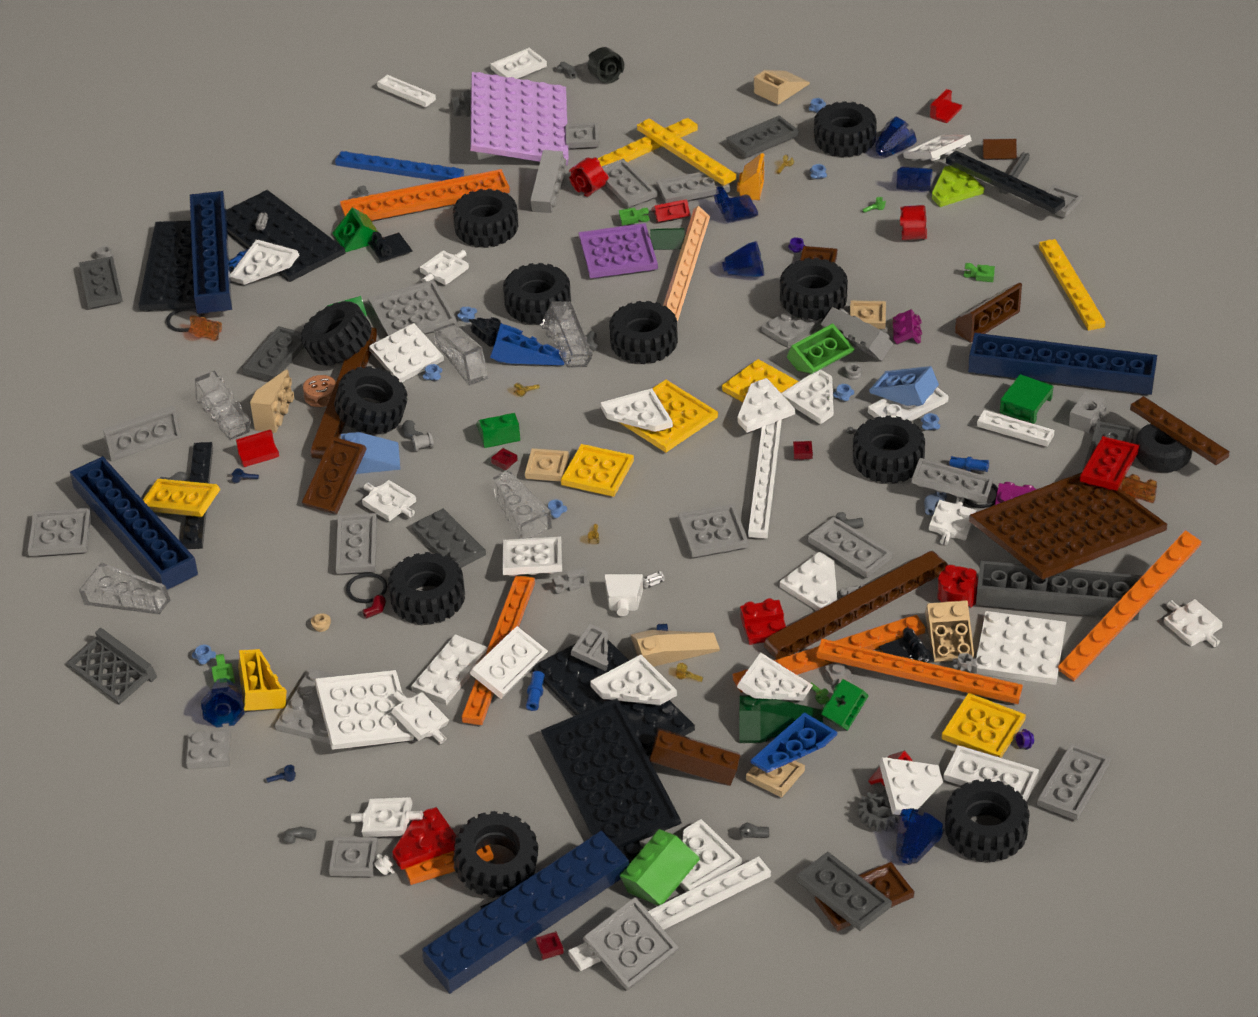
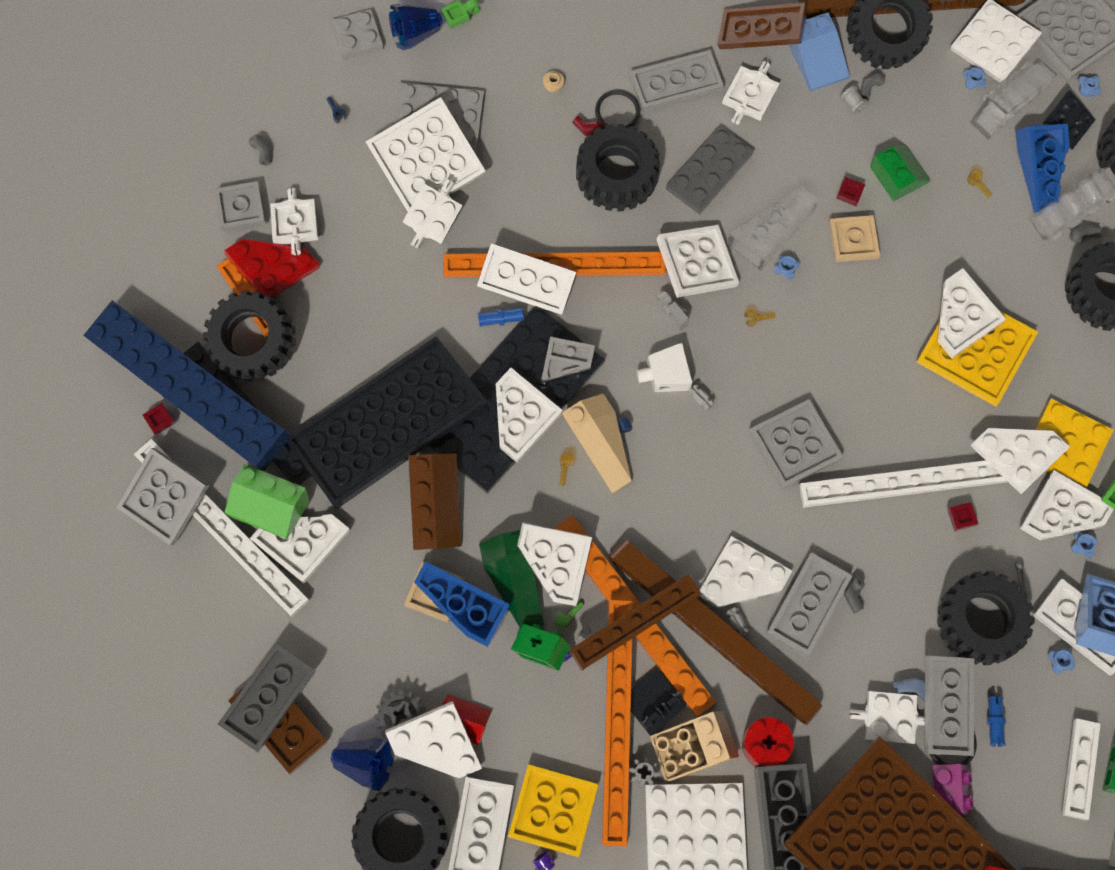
camera: 70 degrees right, 30 degrees up
(258, 683) = (445, 47): yellow wedge -> none
(384, 864) = (230, 233): white plate -> none
(449, 669) = (516, 225): white plate -> none
(597, 470) = (861, 295): yellow plate -> none
(749, 830) = (349, 587): dark grey arm -> none
(762, 619) = (663, 531): red plate -> none
(841, 636) = (634, 622): none -> reddish brown plate

